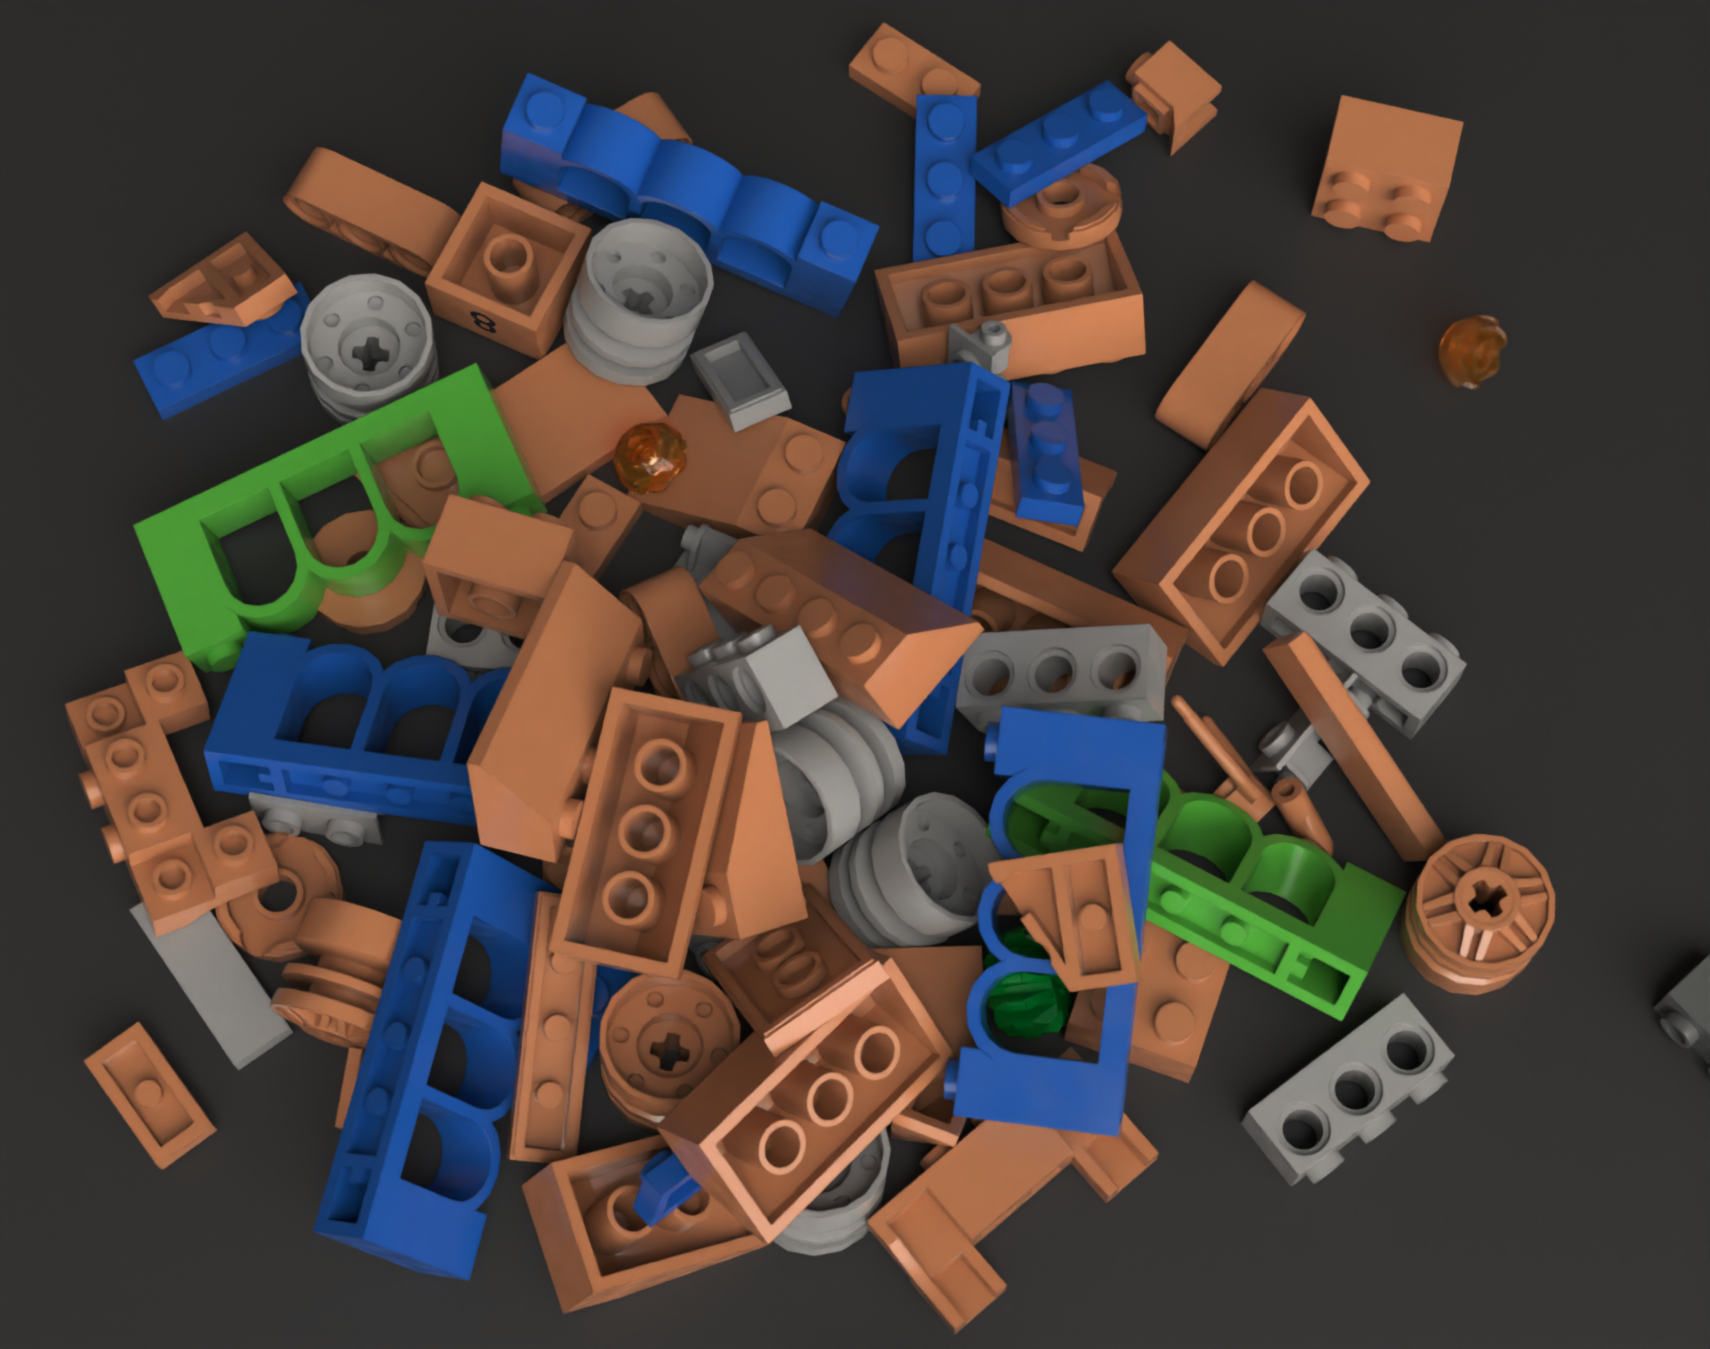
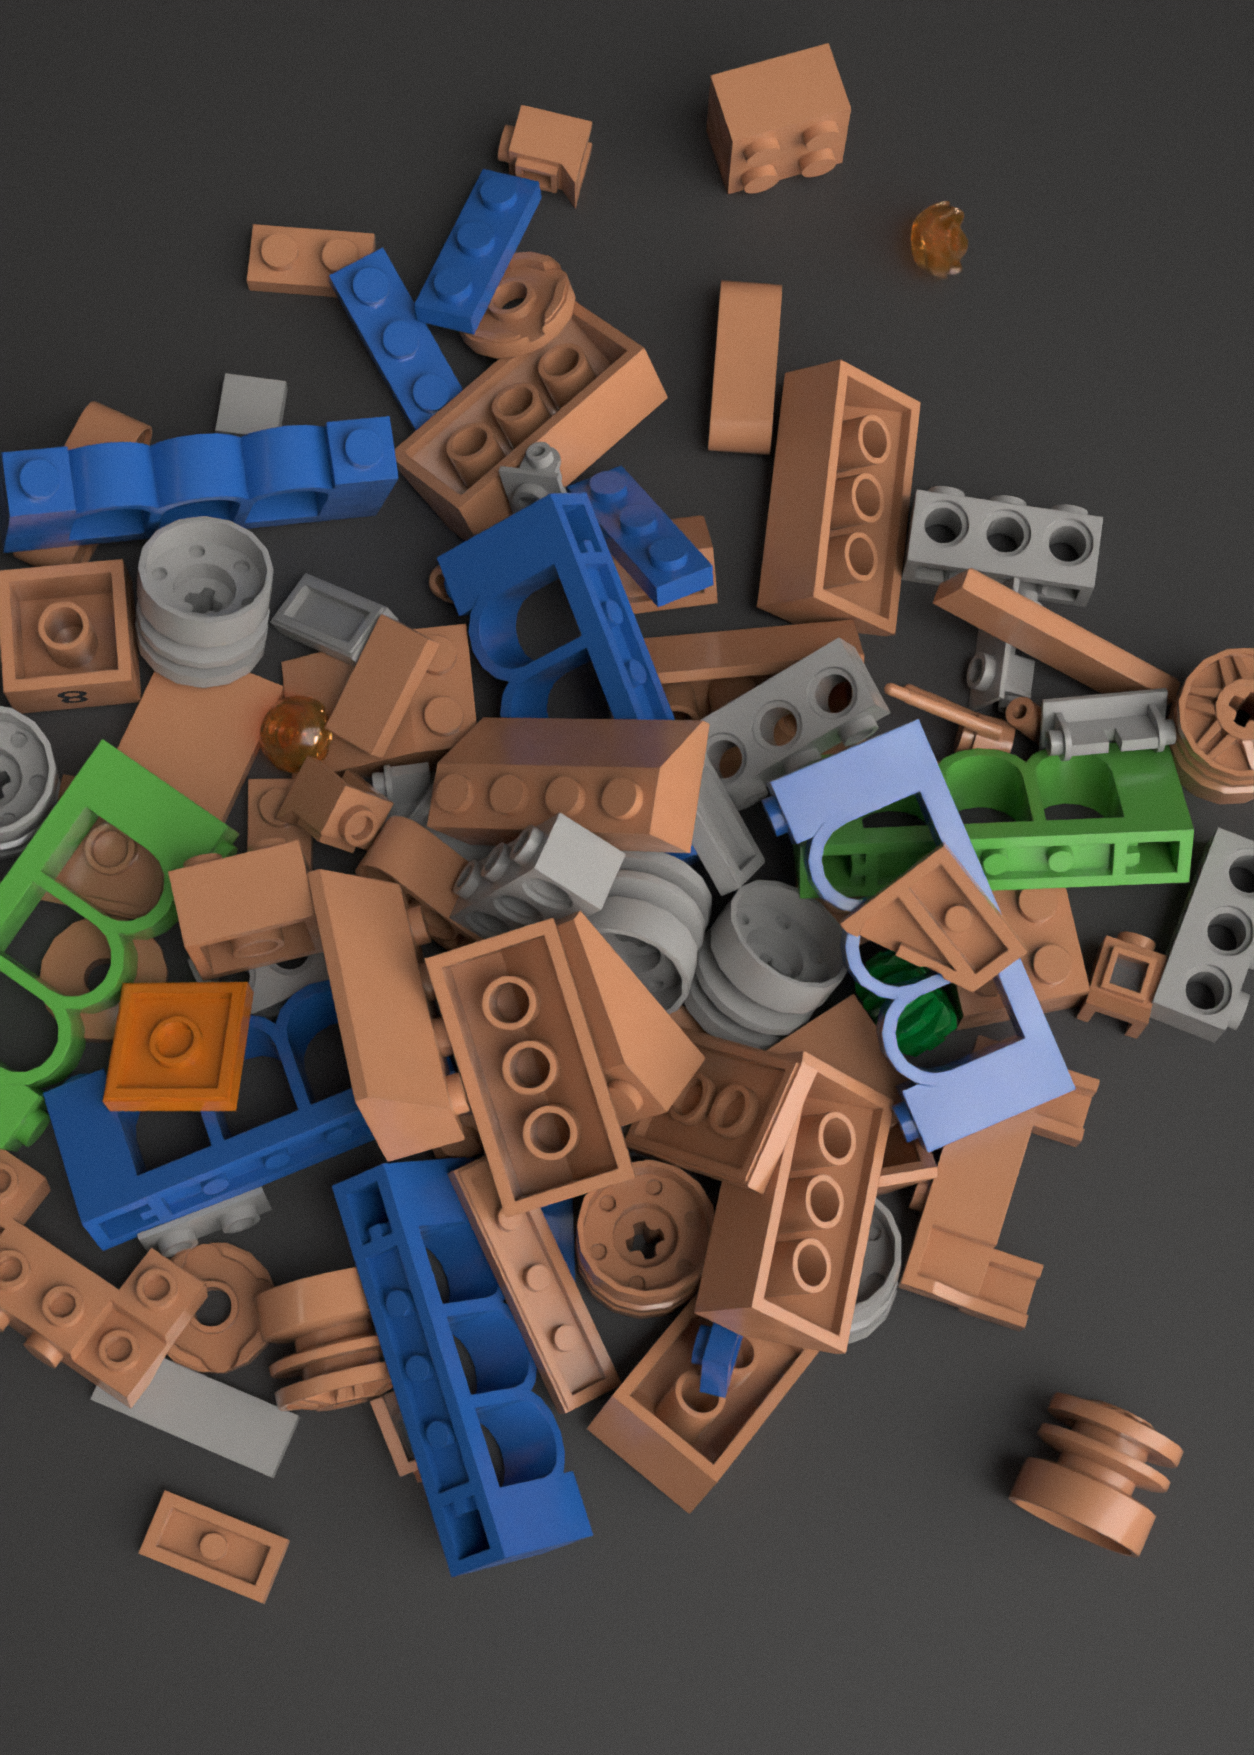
camera: 35 degrees left, 5 degrees up
(380, 654) = (179, 1046): none -> orange tile
(635, 536) = (333, 808): none -> nougat window
(740, 453) = (382, 686): none -> nougat tile
(791, 165) = (250, 404): none -> light grey tile
(946, 732) = (722, 836): none -> light grey tile
(1236, 1080) = (1124, 981): none -> nougat window
(1348, 835) = (1093, 721): none -> light grey hinge

